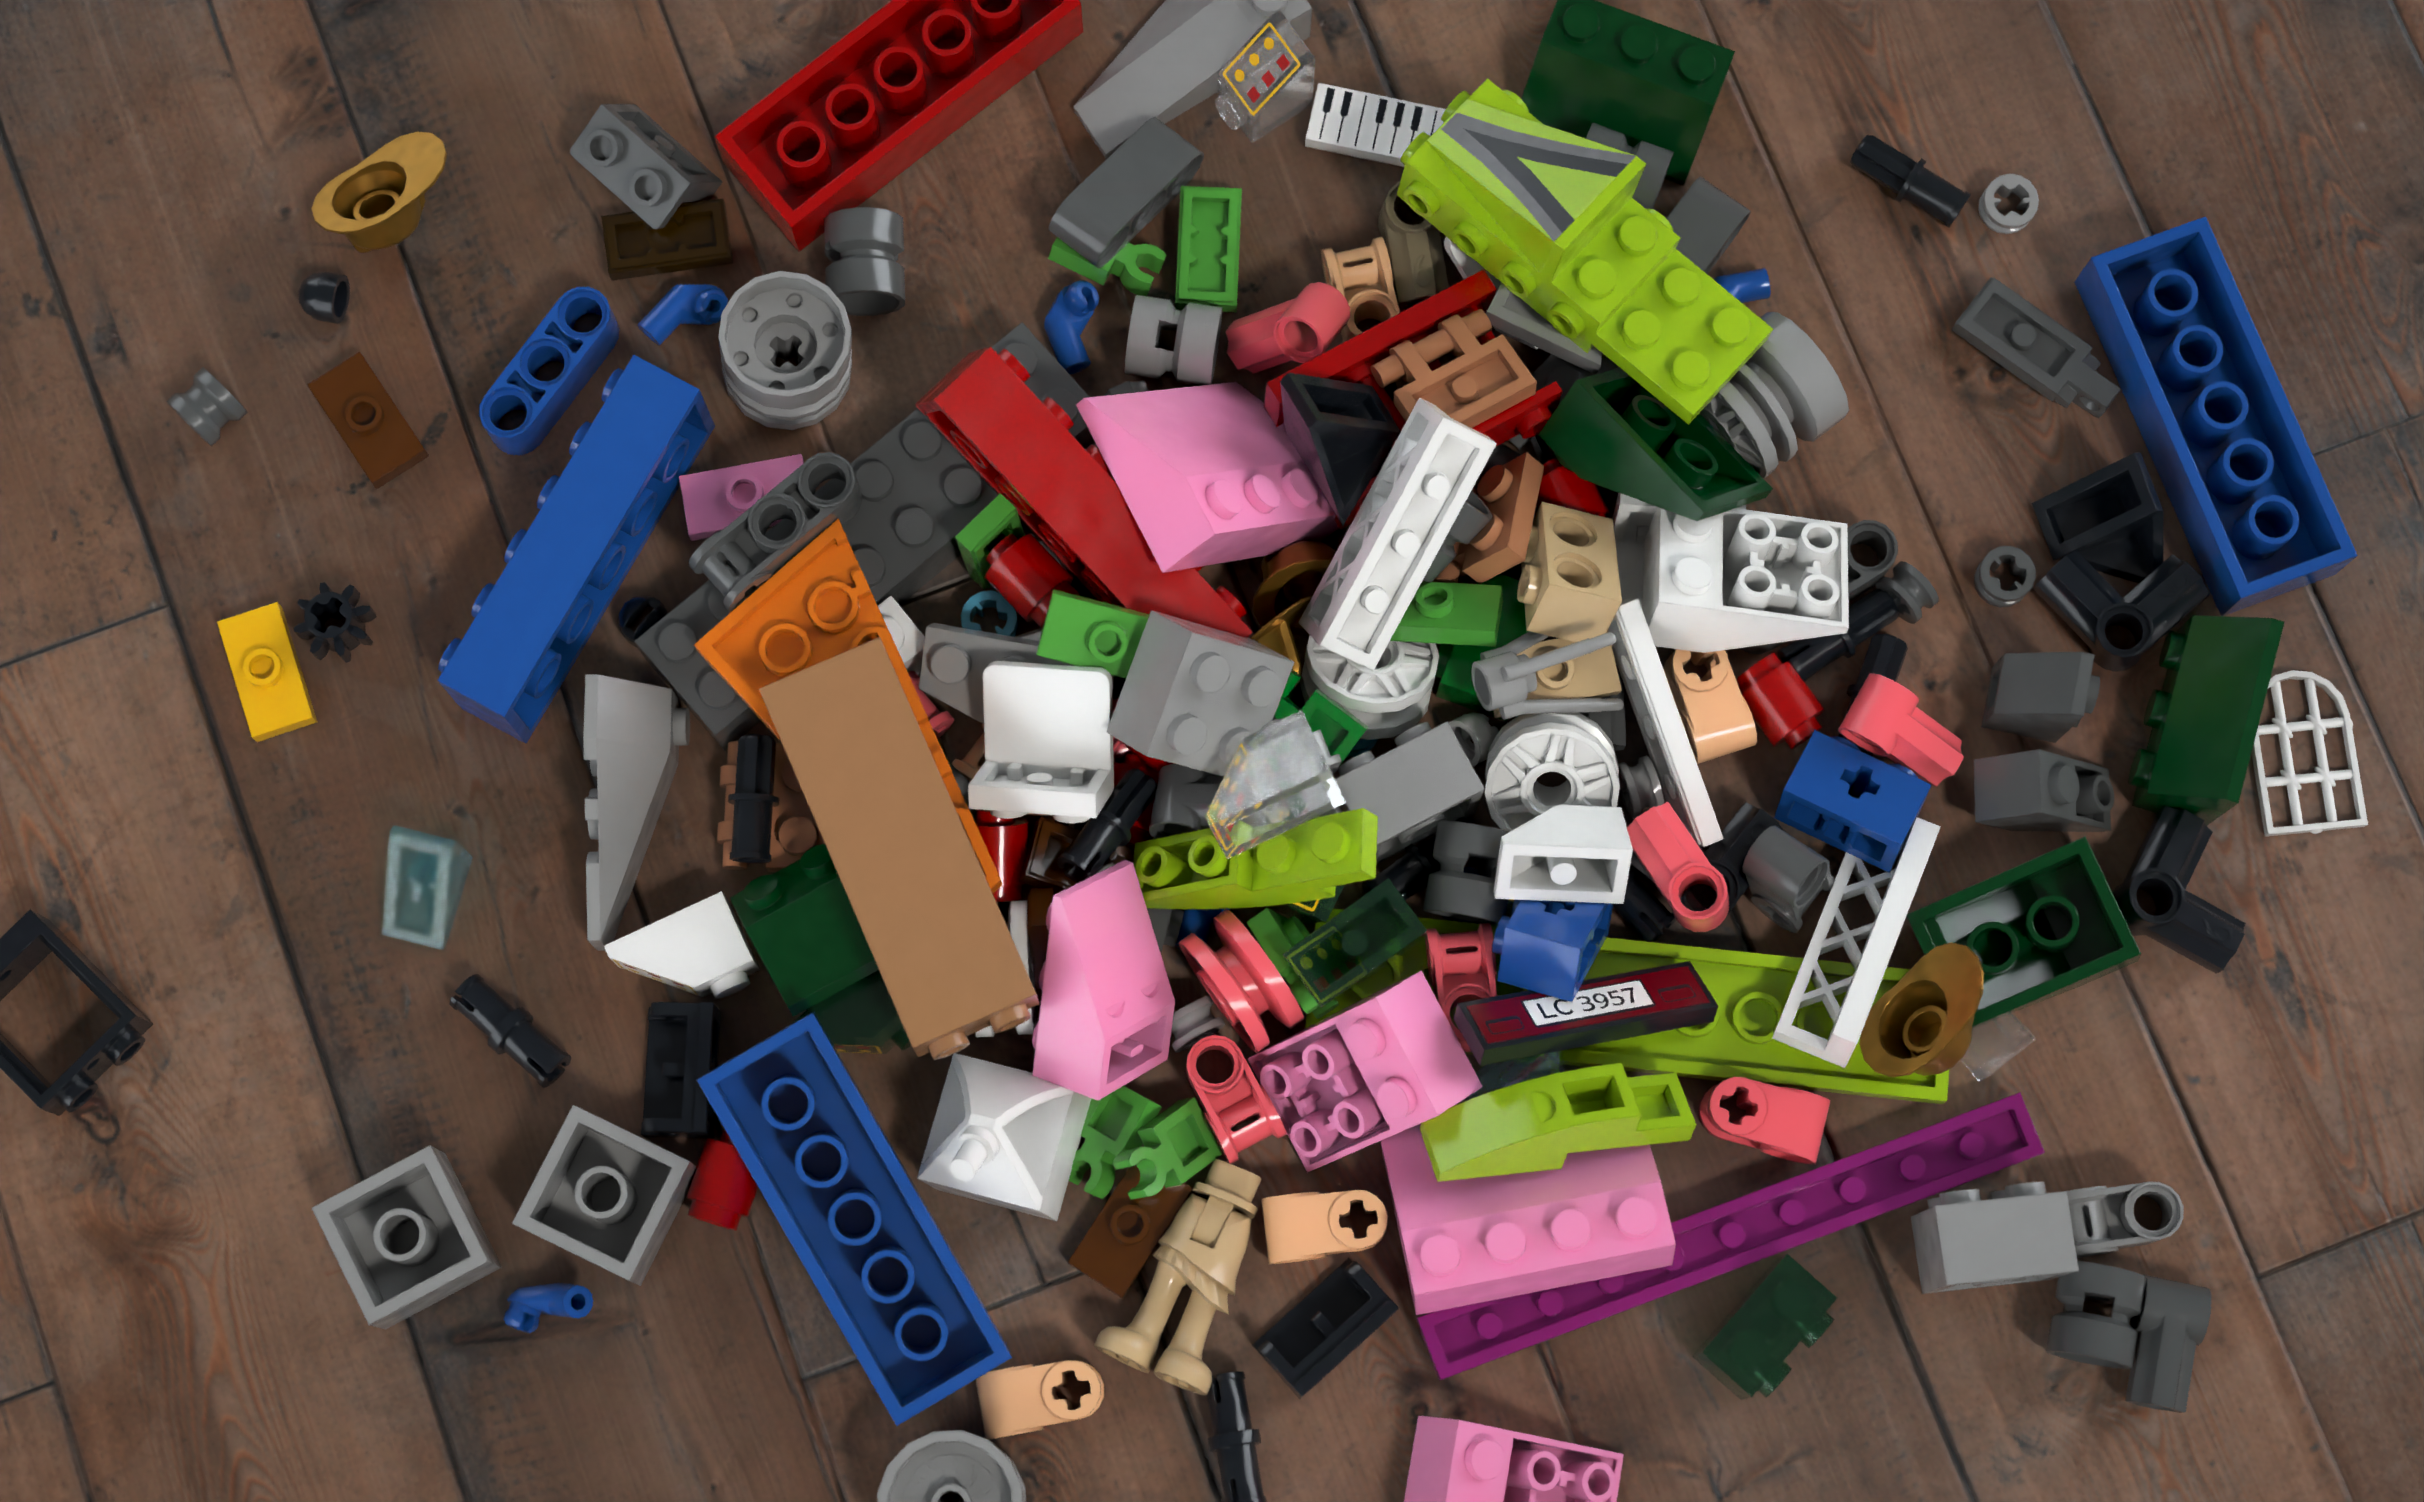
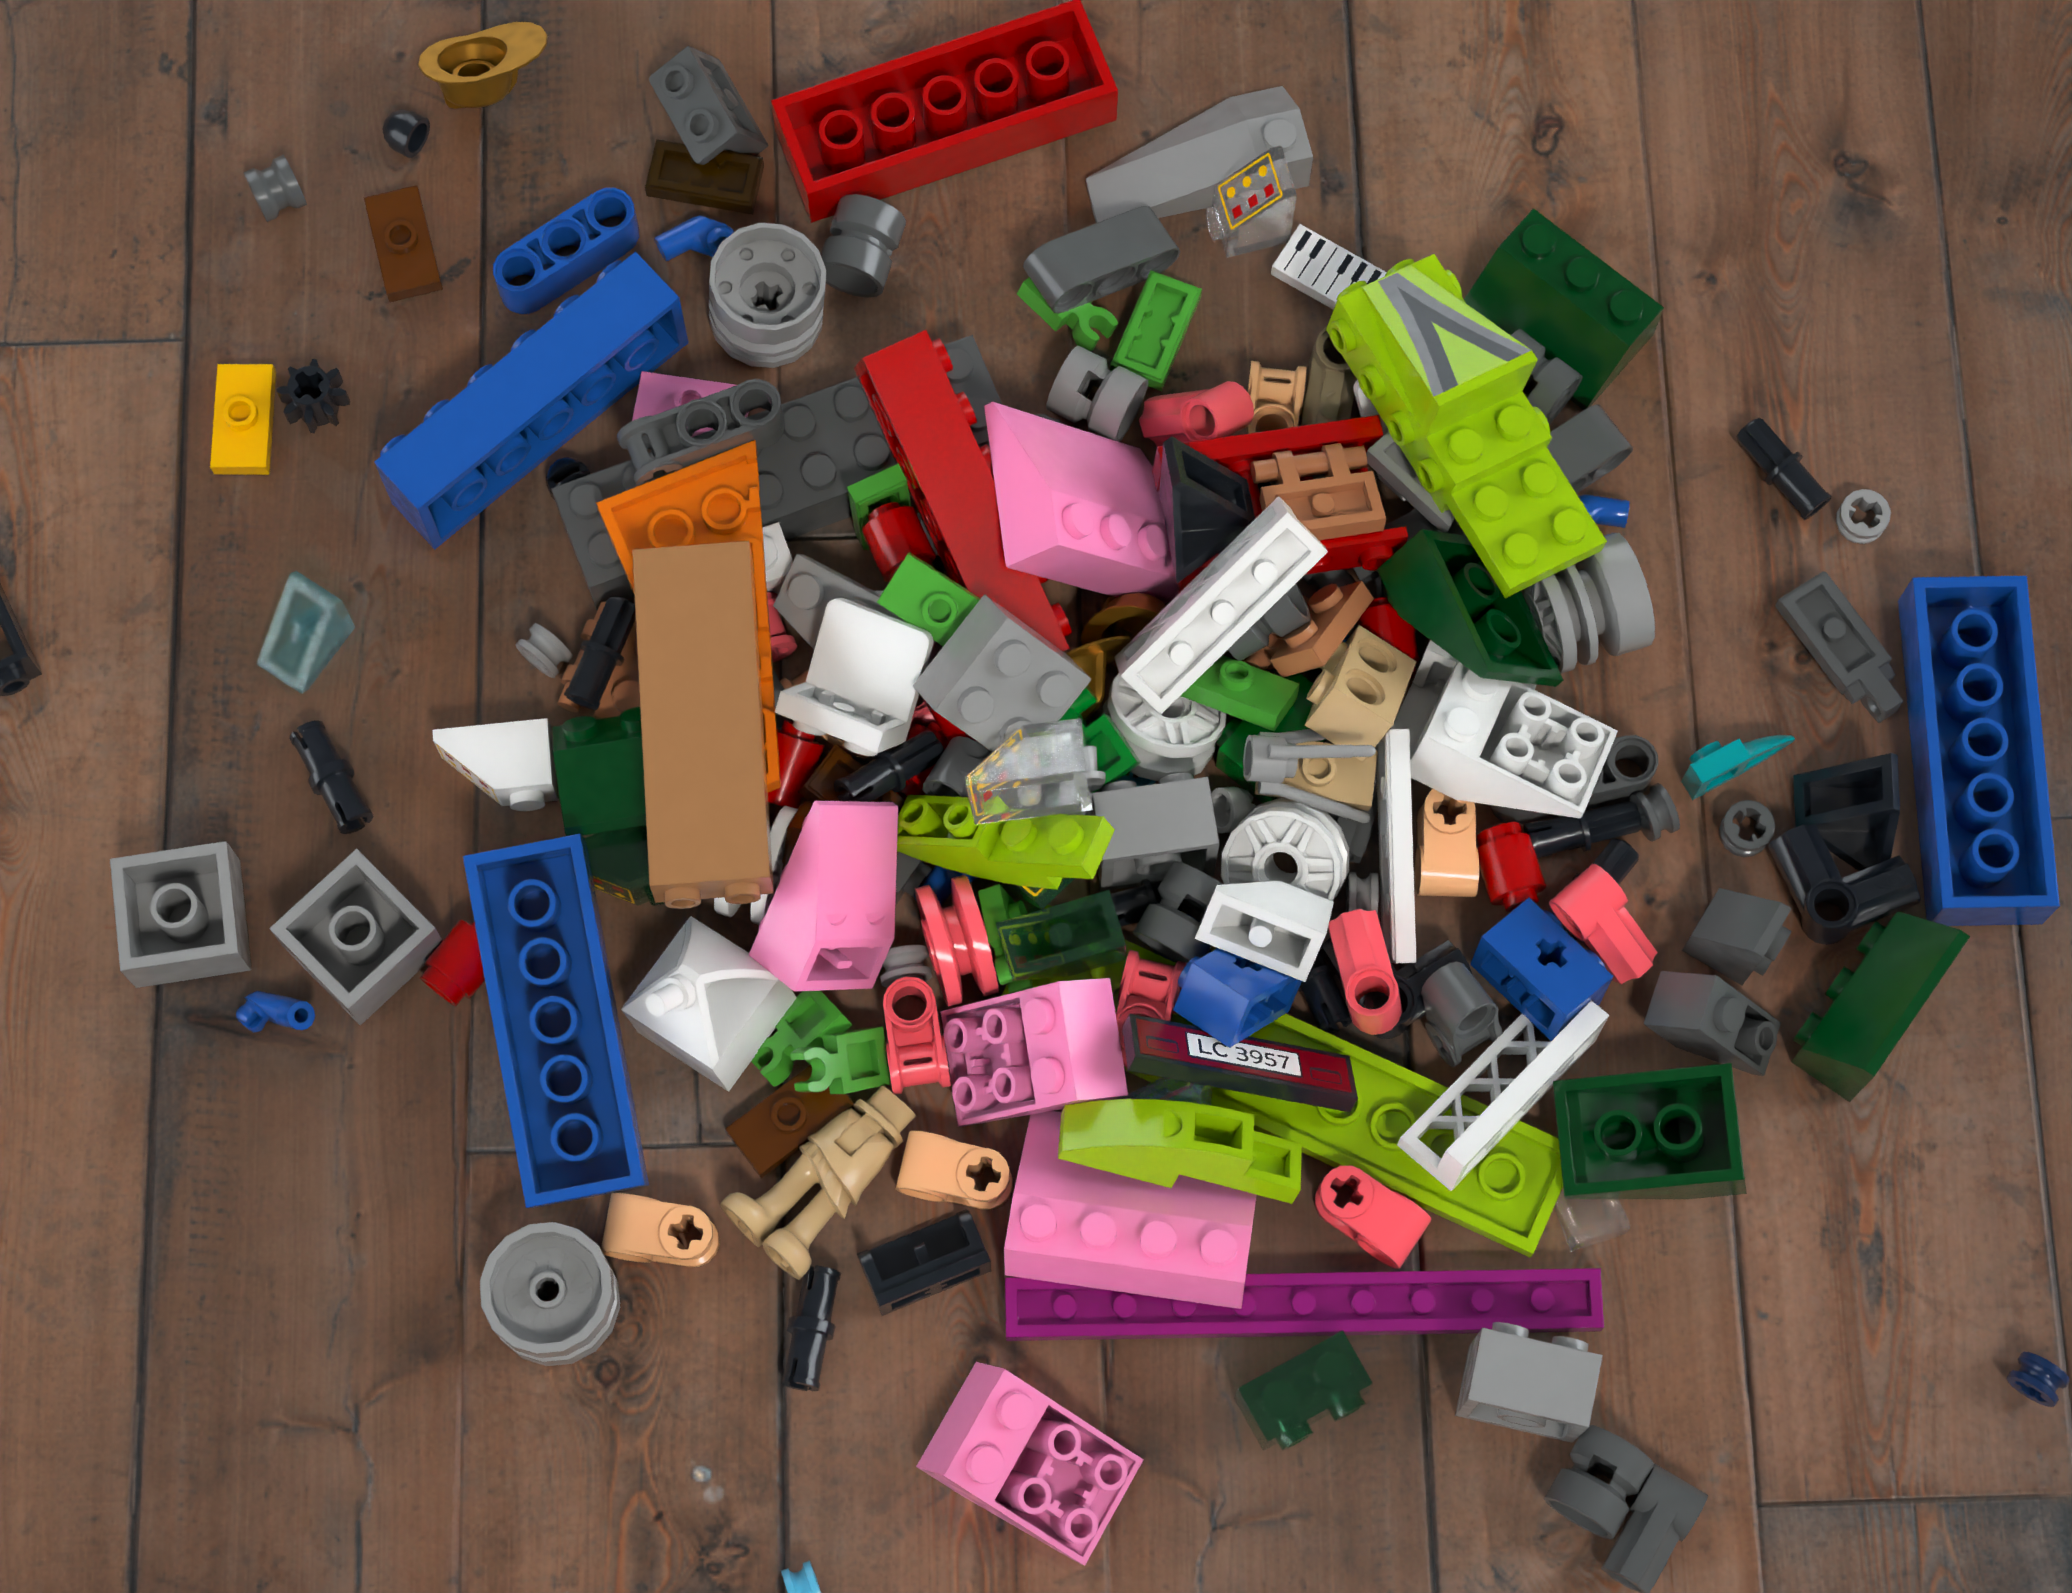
camera: 20 degrees right, 5 degrees down
(634, 753) = (516, 584): light grey wedge -> none
(679, 1051) = (468, 829): black hinge -> none
(687, 815) = (544, 650): none -> light grey bush
(989, 599) = (860, 557): medium azure bush -> none
(1067, 321) = (1014, 352): blue arm -> none
(1926, 1016) = (1536, 1171): pearl gold piece -> none
(1952, 519) = (1718, 764): none -> teal plate
(2106, 1219) = (1641, 1404): light grey piece -> none
(2181, 918) = (1796, 1122): black piece -> none
(2322, 773) = (1970, 1091): white window -> none

